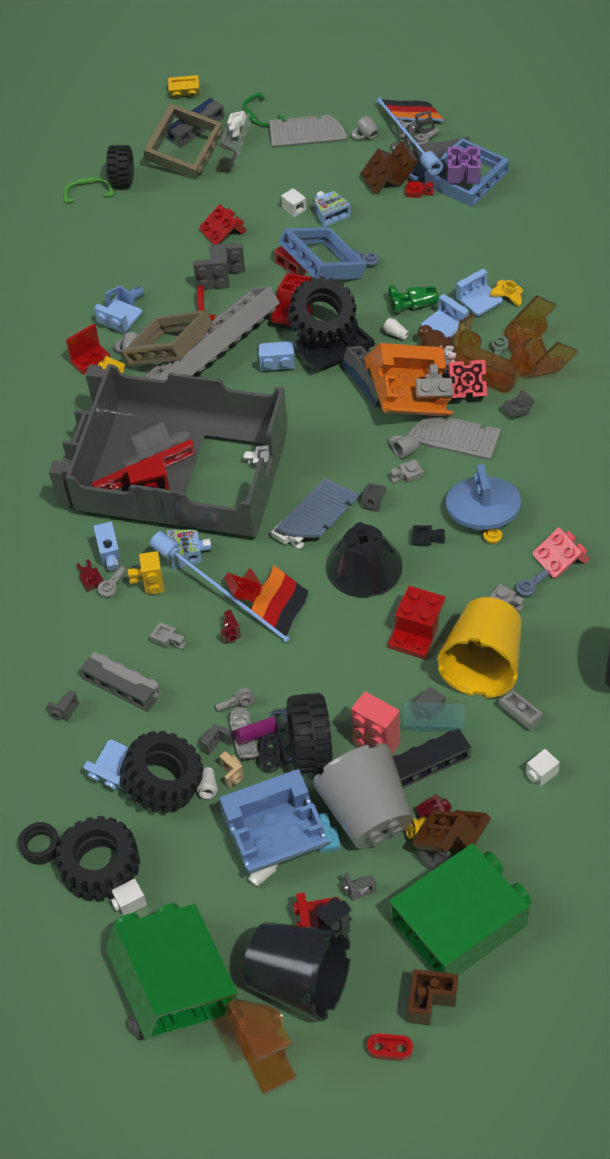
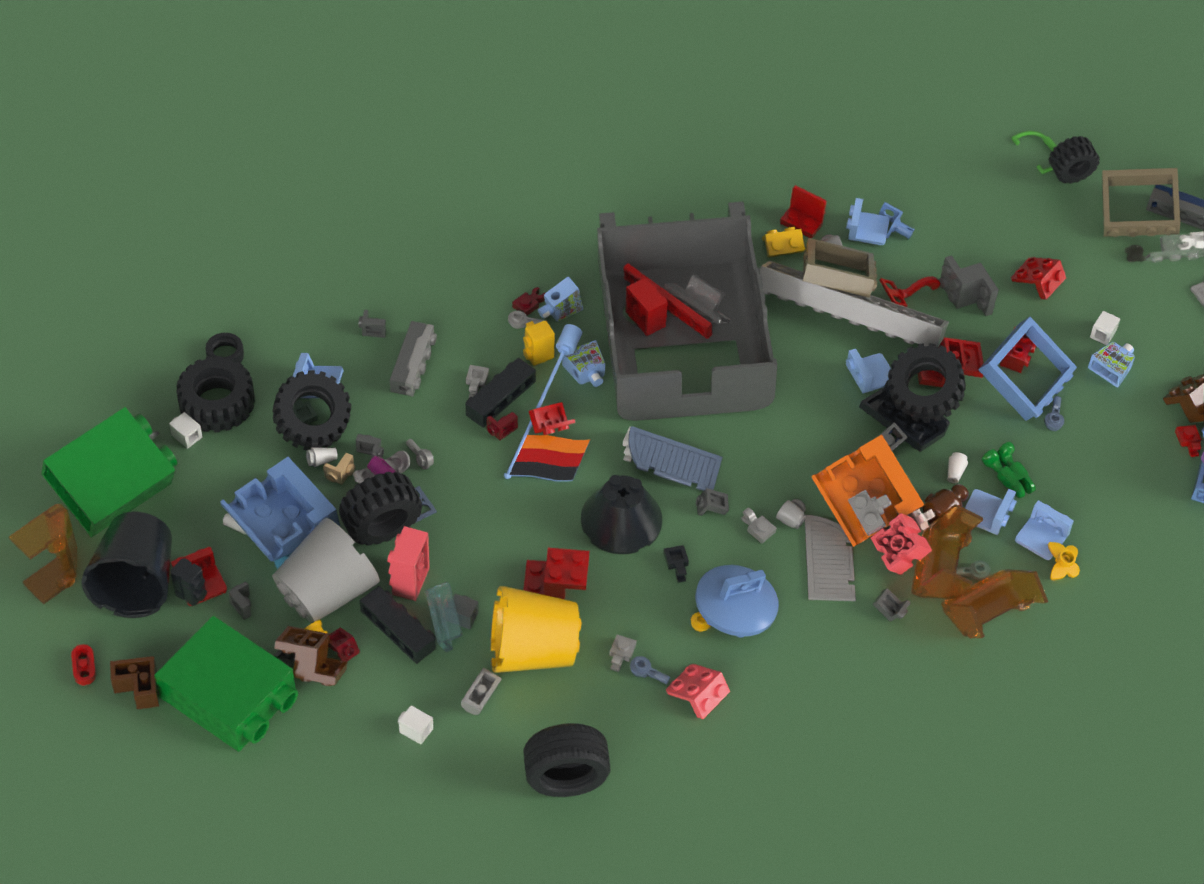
camera: 65 degrees right, 0 degrees up
(191, 620) = (500, 392): none -> black brick

